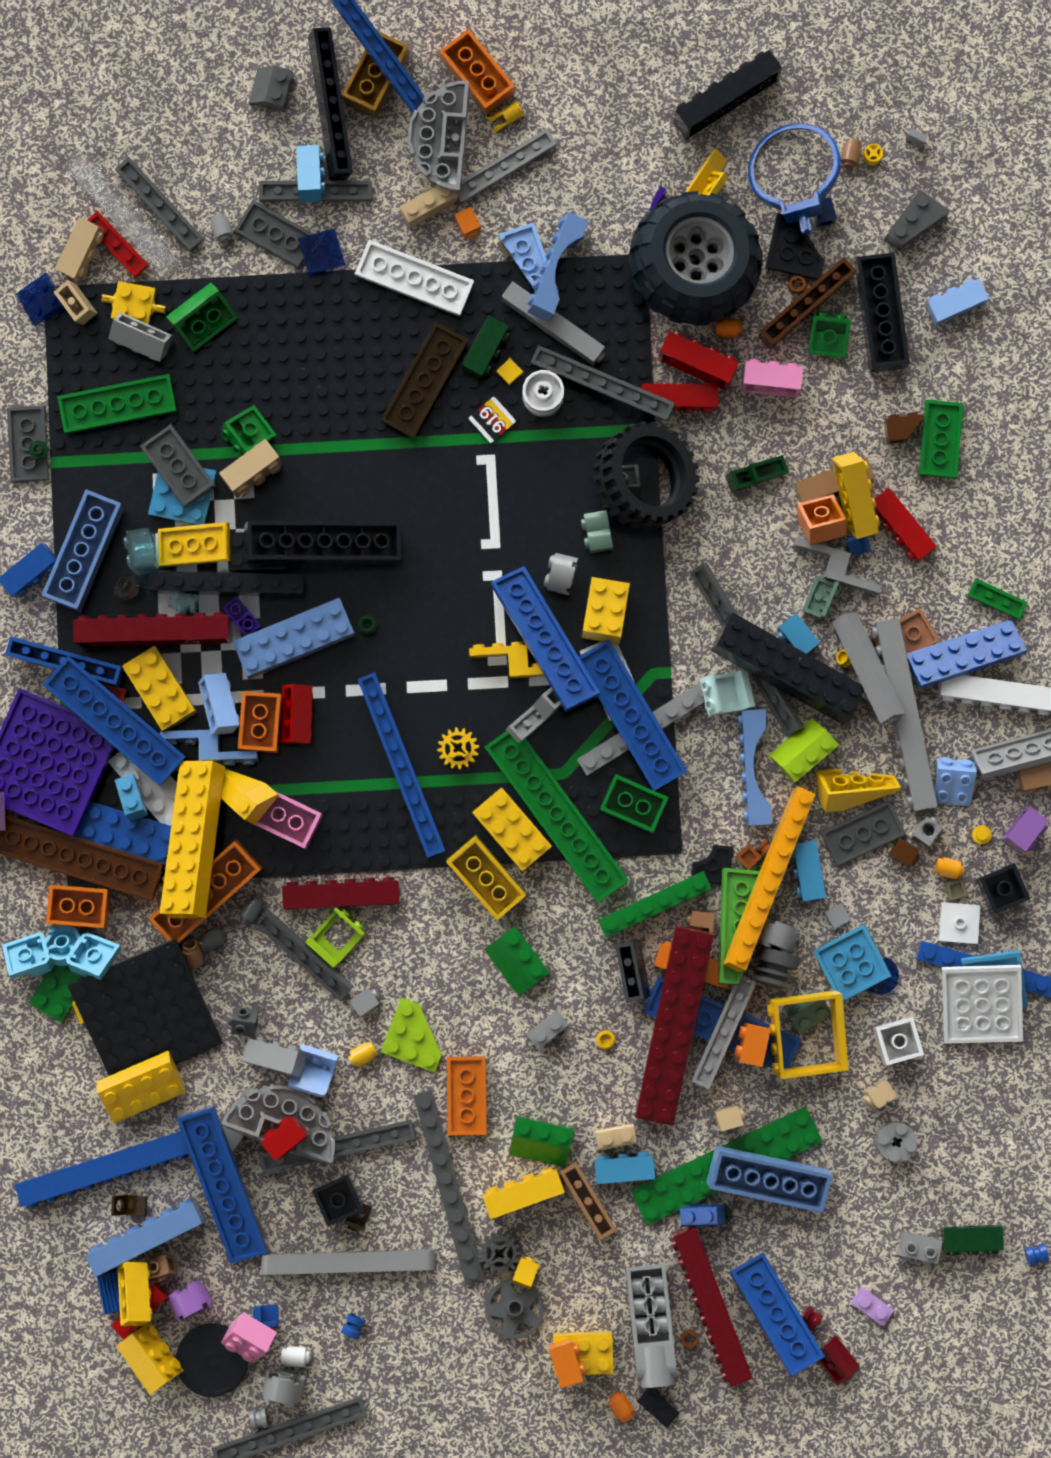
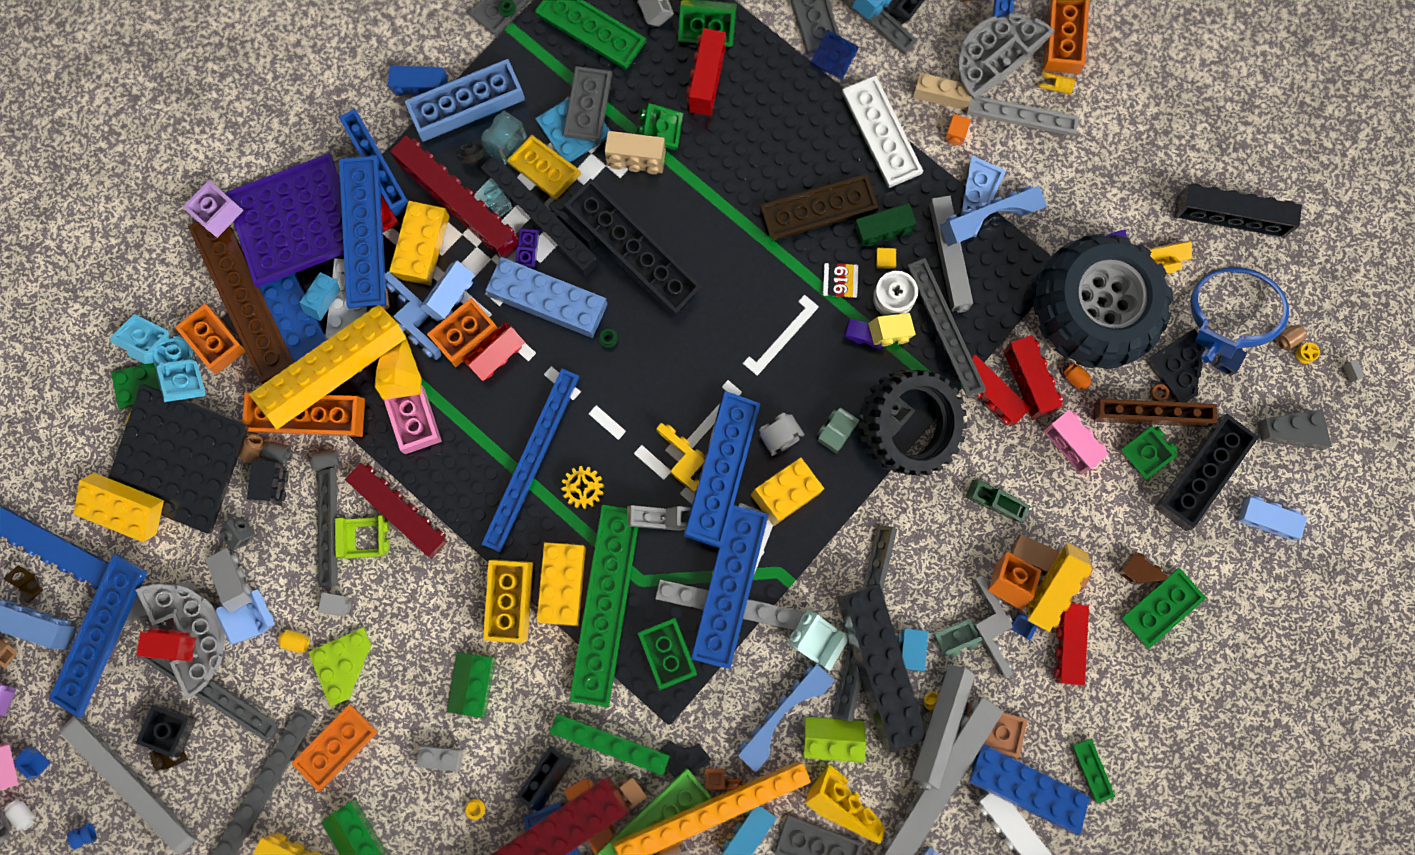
camera: 45 degrees right, 5 degrees down
(230, 965) = (267, 483): none -> black brick
(240, 353) = (706, 71): none -> red brick
(549, 441) = (859, 333): none -> dark purple slope
(565, 422) = (891, 329): none -> light yellow brick

